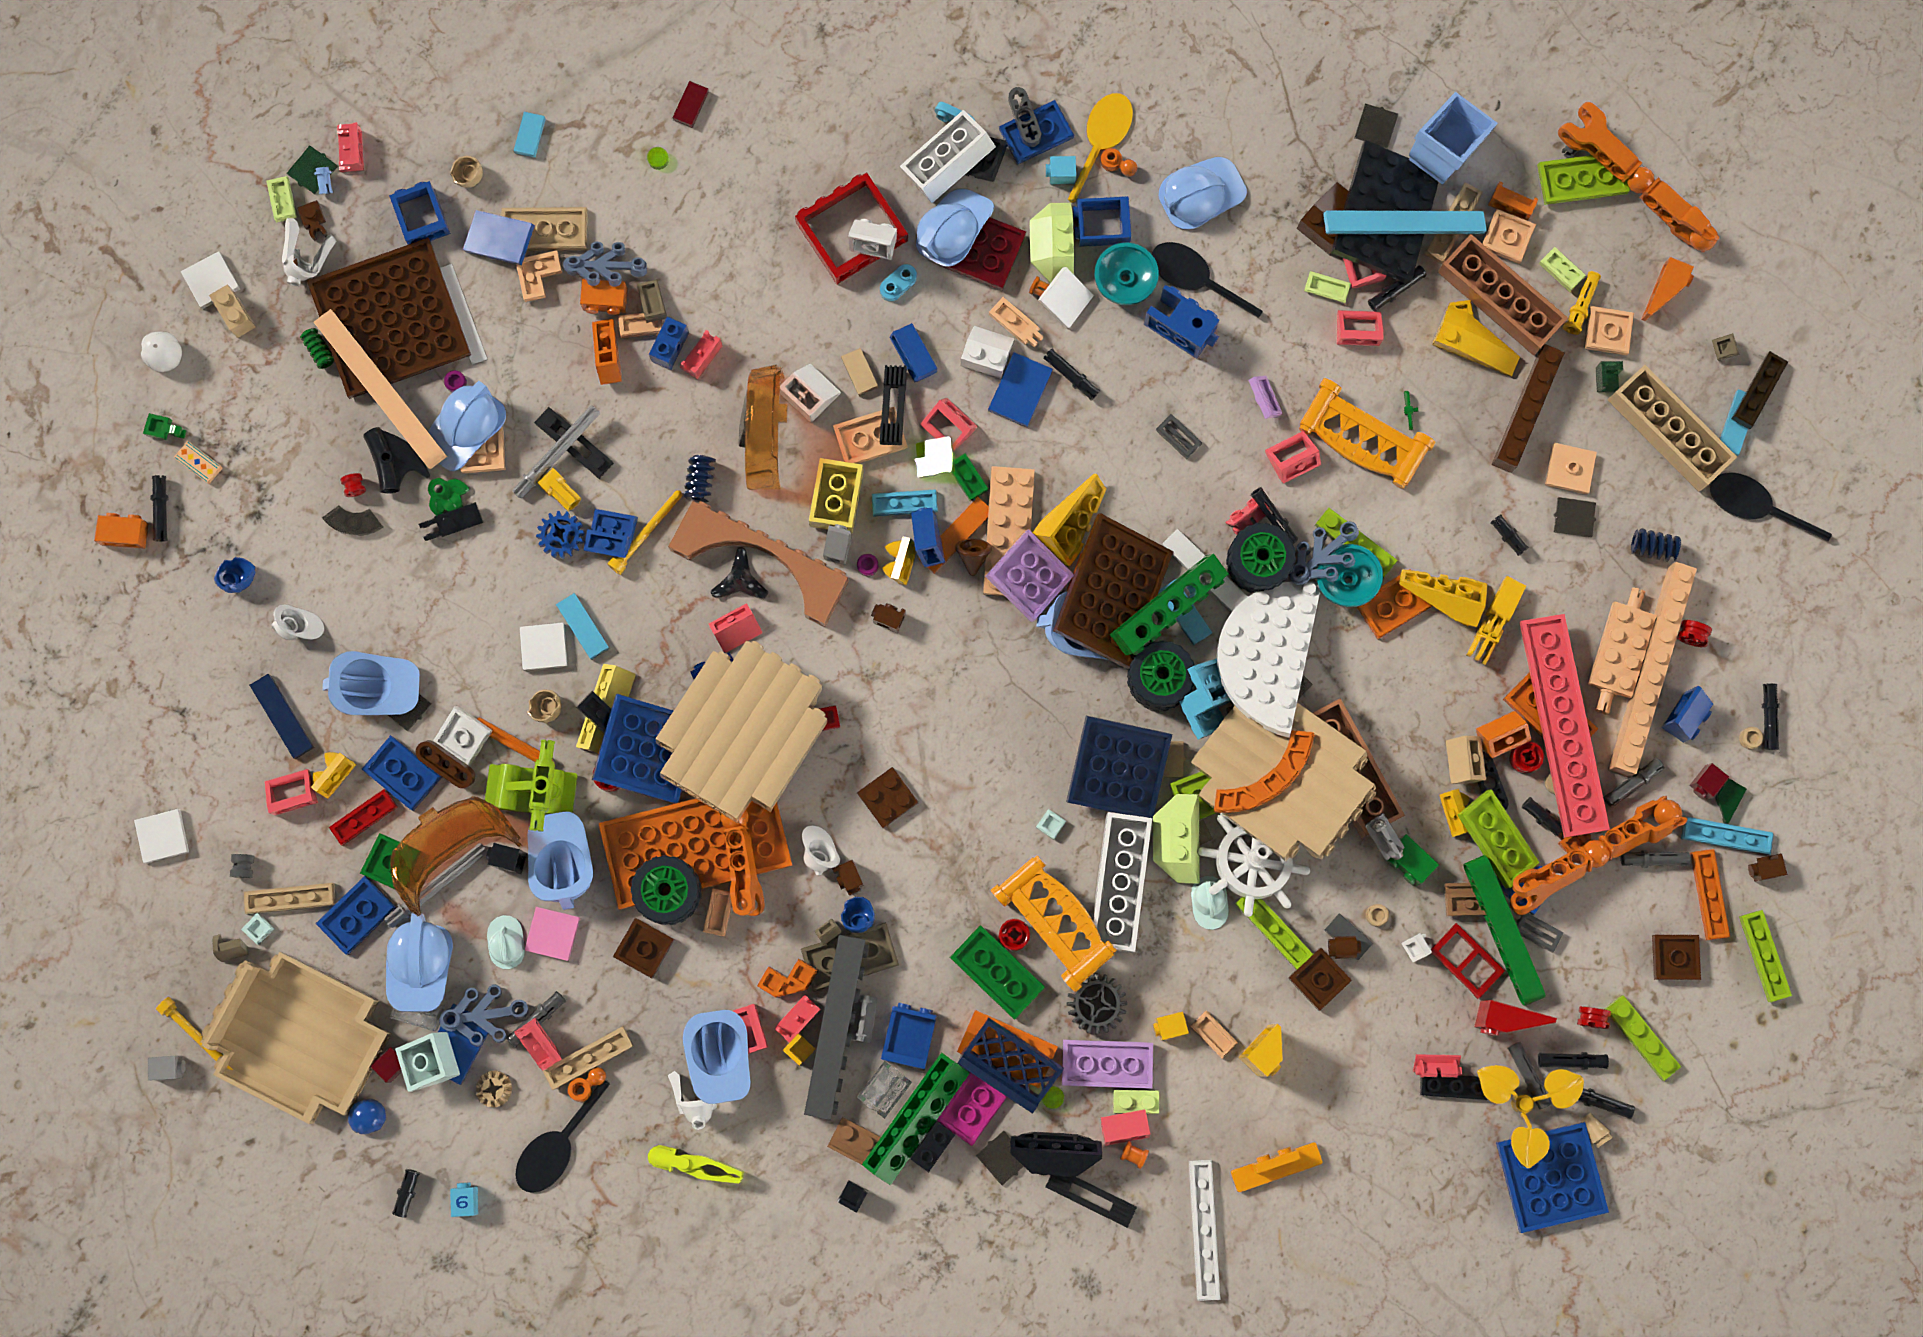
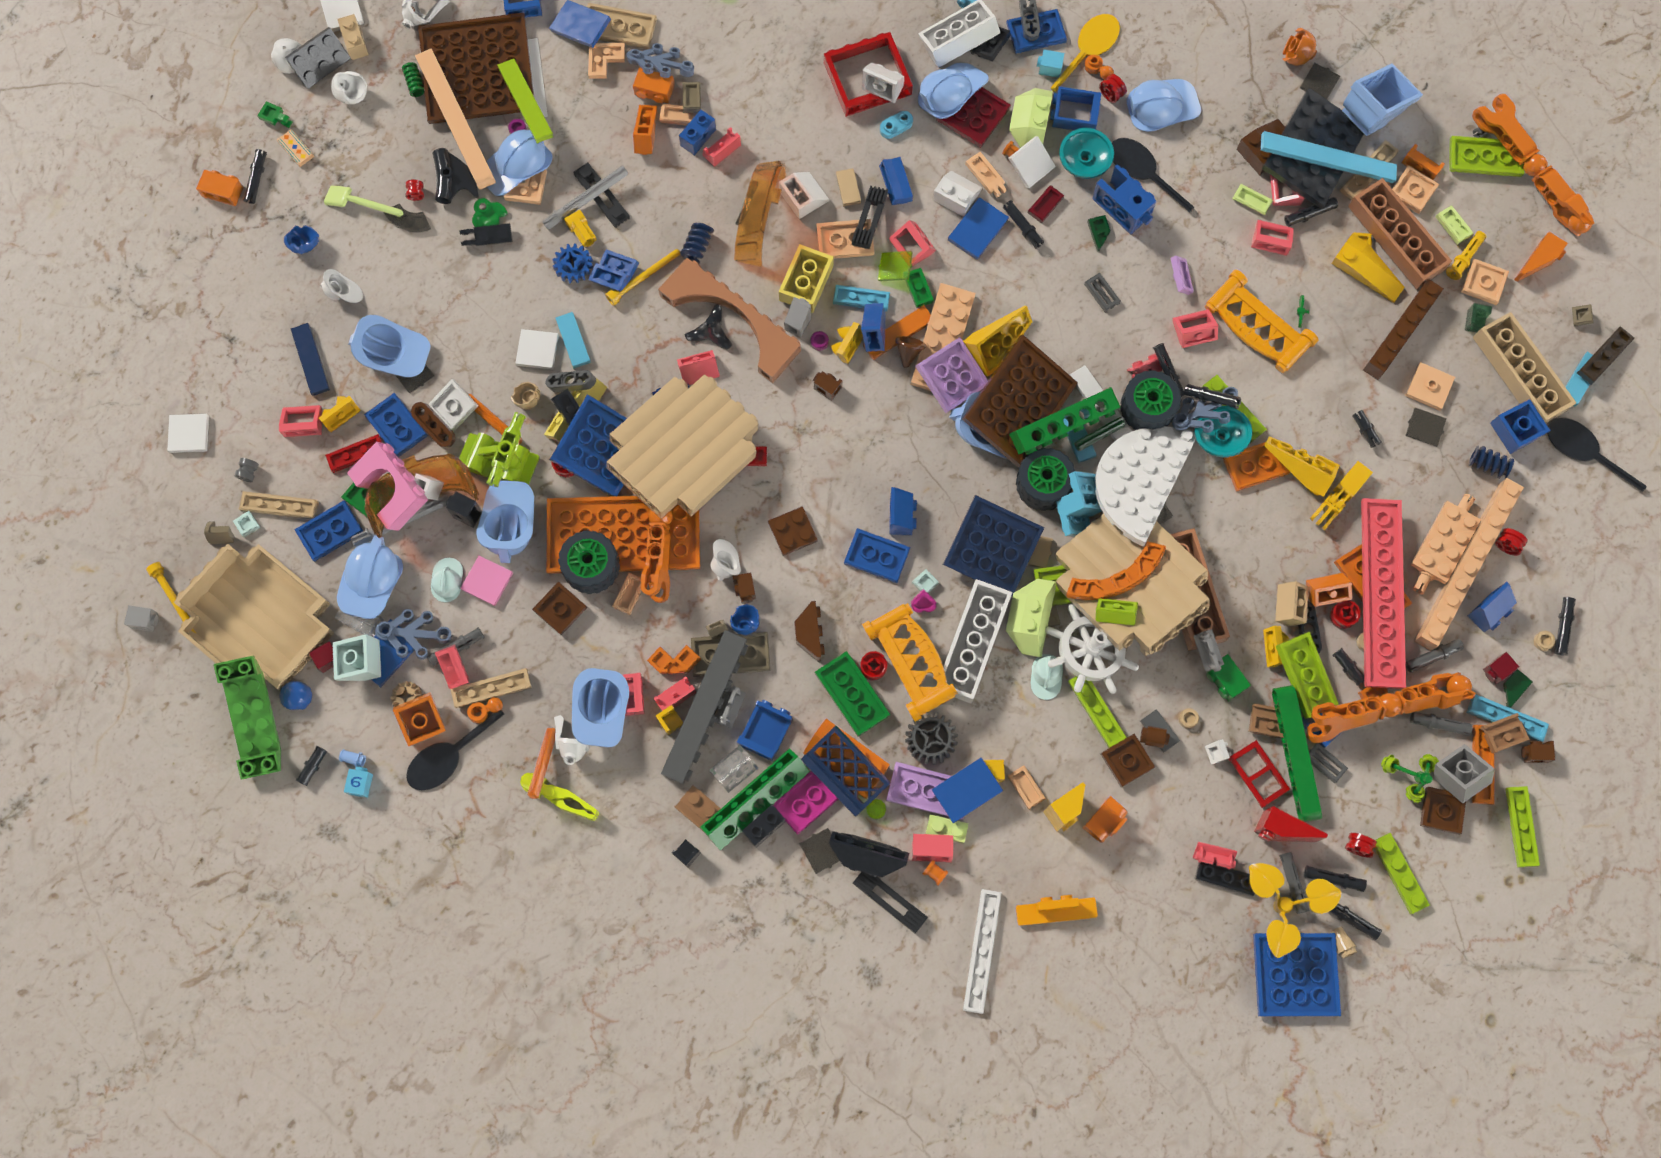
camera: 15 degrees right, 5 degrees down
(197, 347) = (317, 57): none -> plate
(244, 376) = (352, 87): none -> white piece
(266, 511) = (340, 195): none -> yellowish green piece
(323, 1156) = (250, 716): none -> bright green slope
(439, 858) = (407, 496): none -> bright pink arch
(450, 1174) = (356, 759): none -> light blue pin
(457, 842) = (430, 485): none -> white brick
(458, 351) = (525, 101): none -> lime tile
(516, 1114) = (419, 719): none -> orange brick
(600, 682) = (558, 381): none -> dark grey beam
(667, 1132) = (542, 763): none -> orange axle
(933, 912) = (809, 631): none -> reddish brown slope
(989, 805) = (877, 555): none -> blue tile
(1006, 750) = (901, 512): none -> blue slope
(1054, 848) = (923, 602): none -> dark pink tile
(1091, 343) = (1045, 204): none -> dark red tile
(1140, 186) = (1113, 88): none -> red wheel
(1150, 1055) = (967, 790): none -> blue tile
(1160, 362) = (1099, 230): none -> dark green tile
(1211, 608) = (1099, 434): none -> dark green axle
(1274, 820) = (1116, 611): none -> lime slope
(1310, 1053) = (1106, 820): none -> orange piece
(1321, 536) = (1205, 394): none -> black pin
(1345, 91) = (1300, 48): none -> orange cylinder
(1641, 943) = (1415, 791): none -> lime plant
(1679, 496) = (1519, 426): none -> blue slope
(1691, 913) = (1463, 773): none -> light grey brick
(1727, 855) = (1504, 733): none -> medium nougat plate

